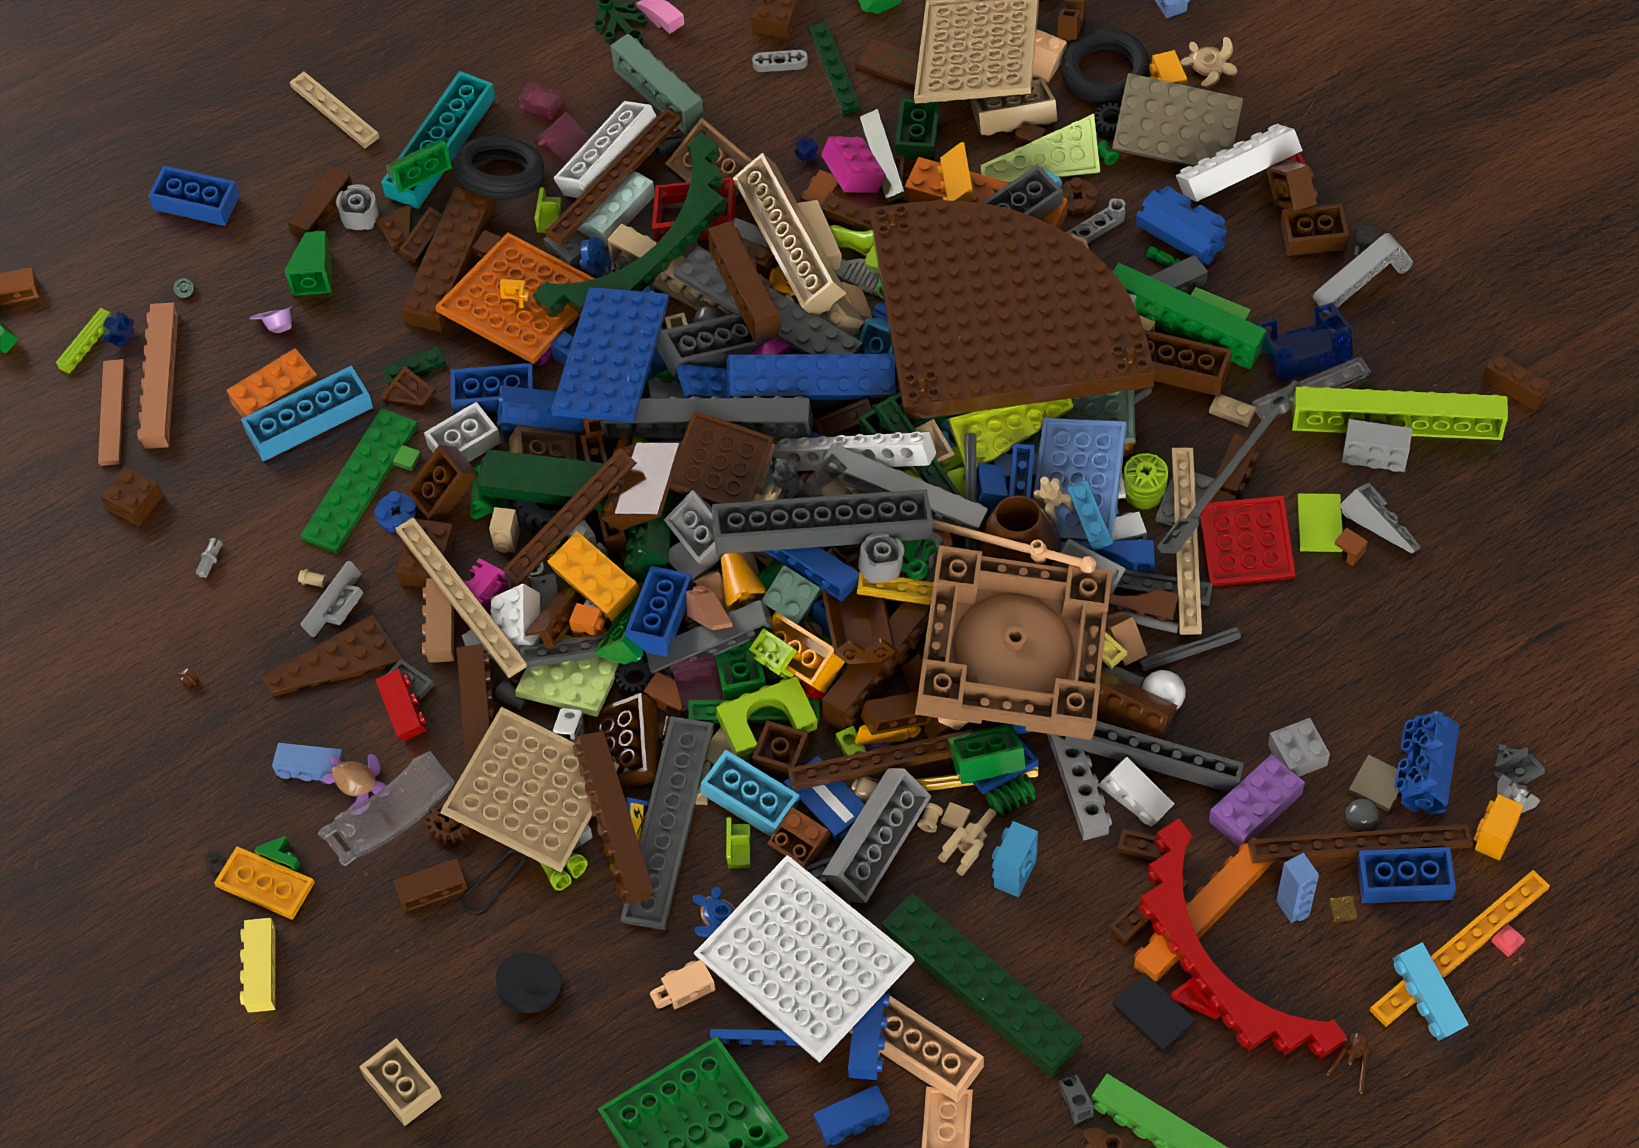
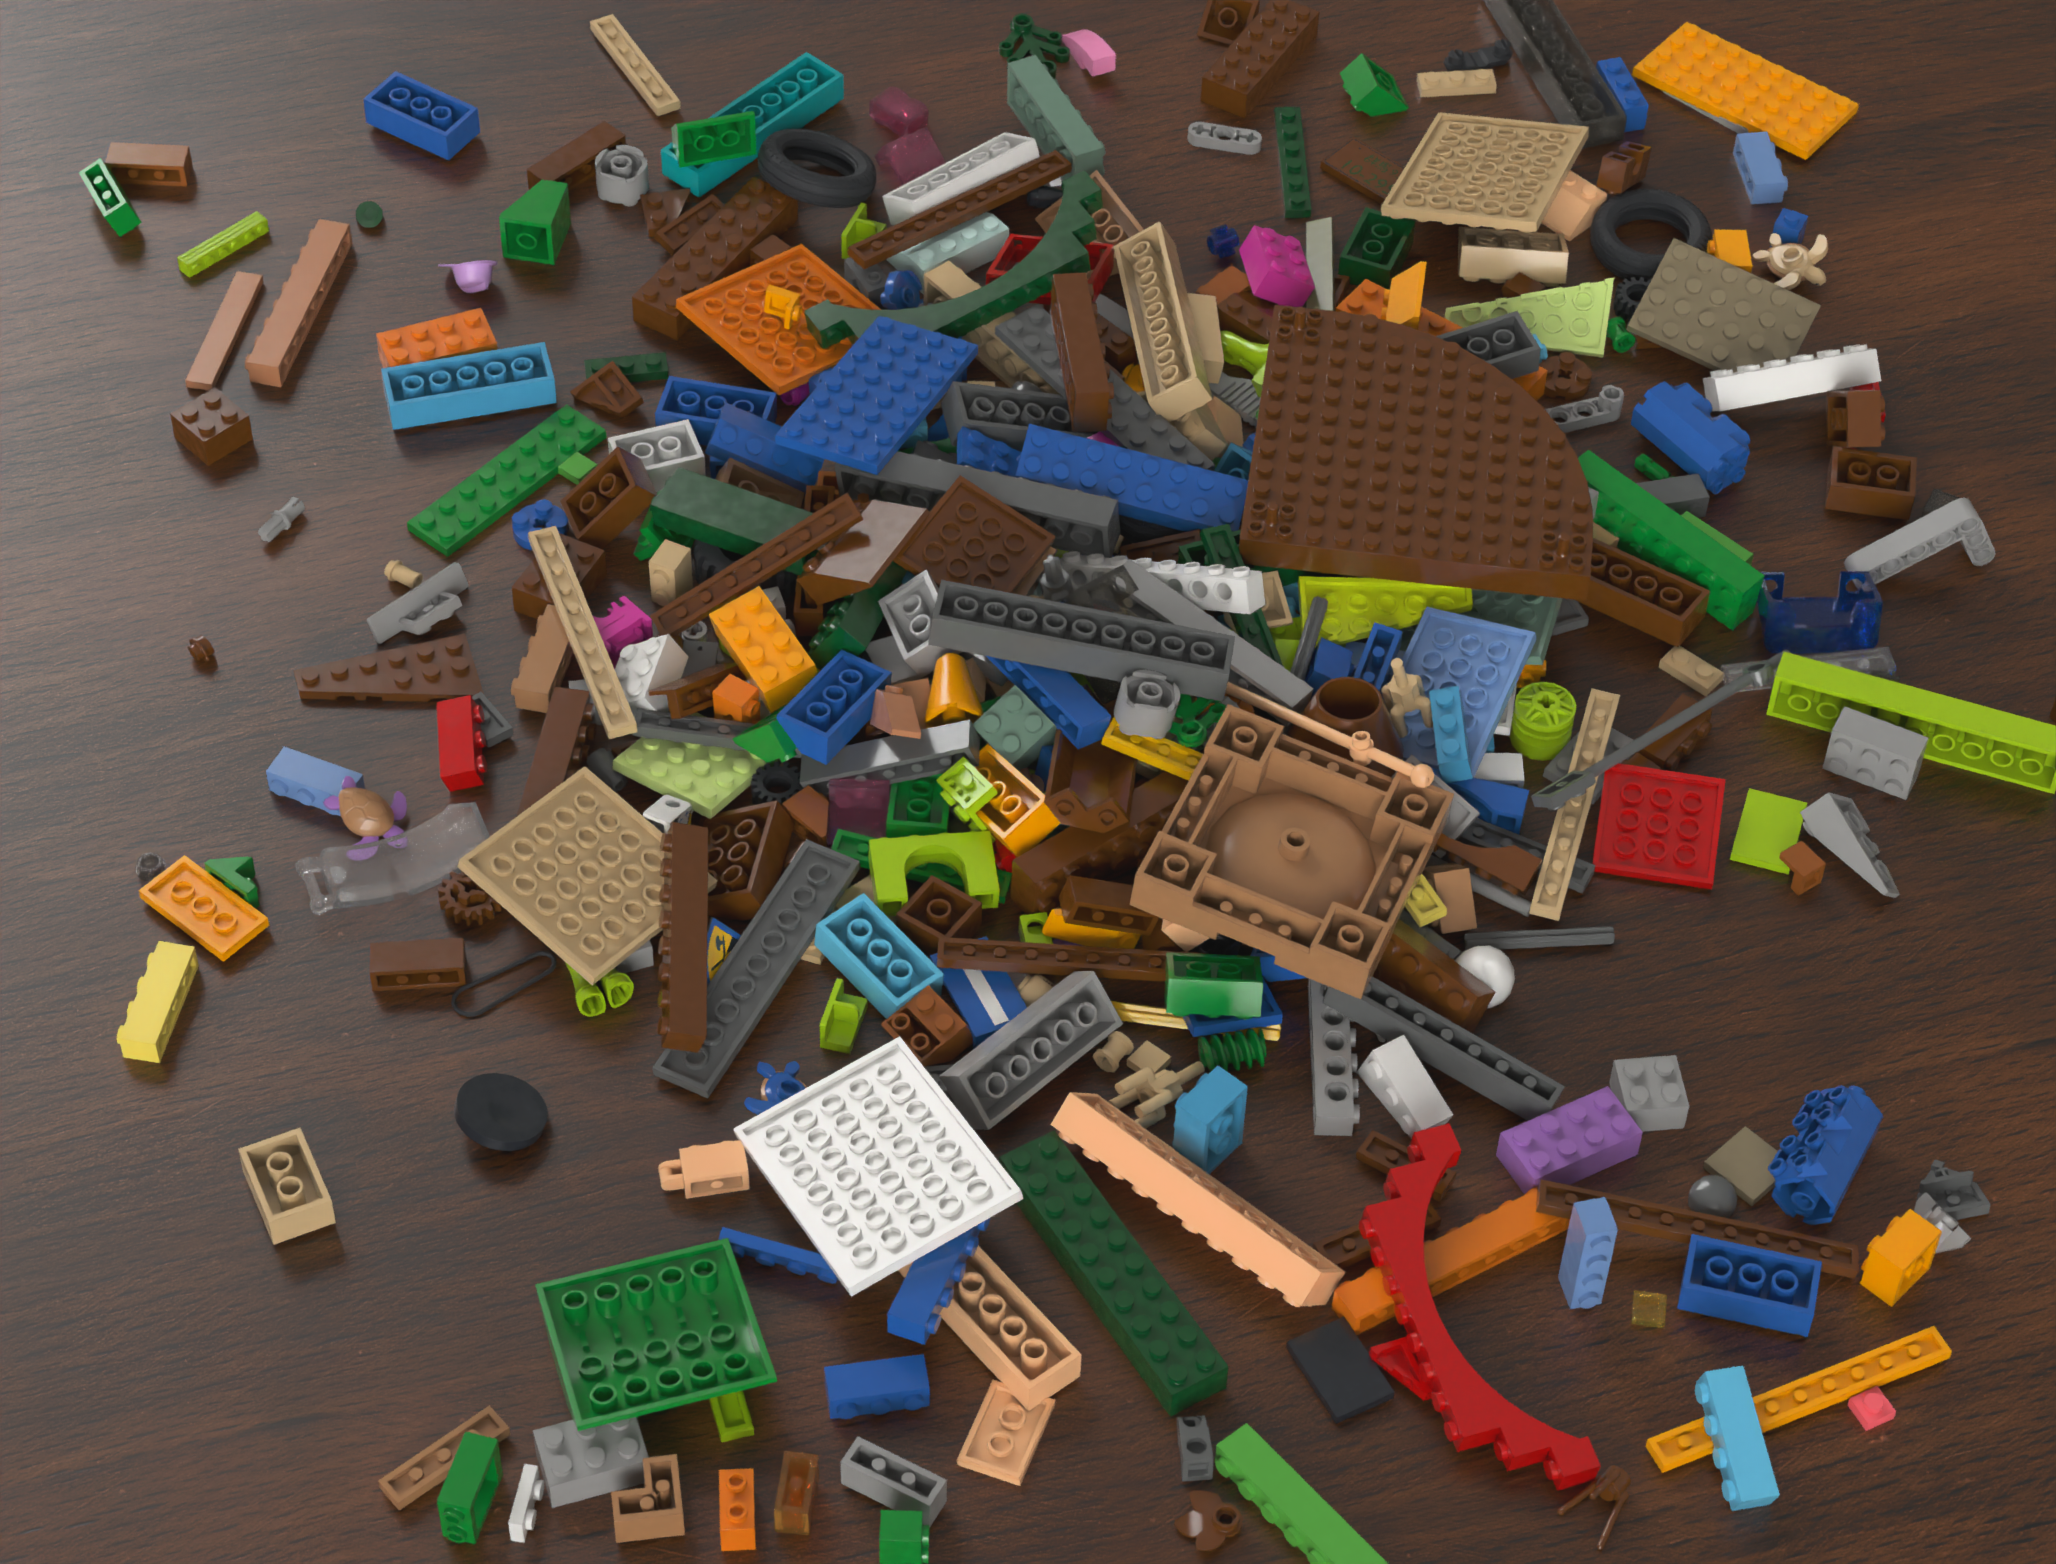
camera: 10 degrees right, 10 degrees down
(118, 329) = (269, 238): clear blue brick -> none
(1023, 916) = (1198, 1200): none -> light nougat brick
(1201, 34) = (1790, 226): none -> blue brick

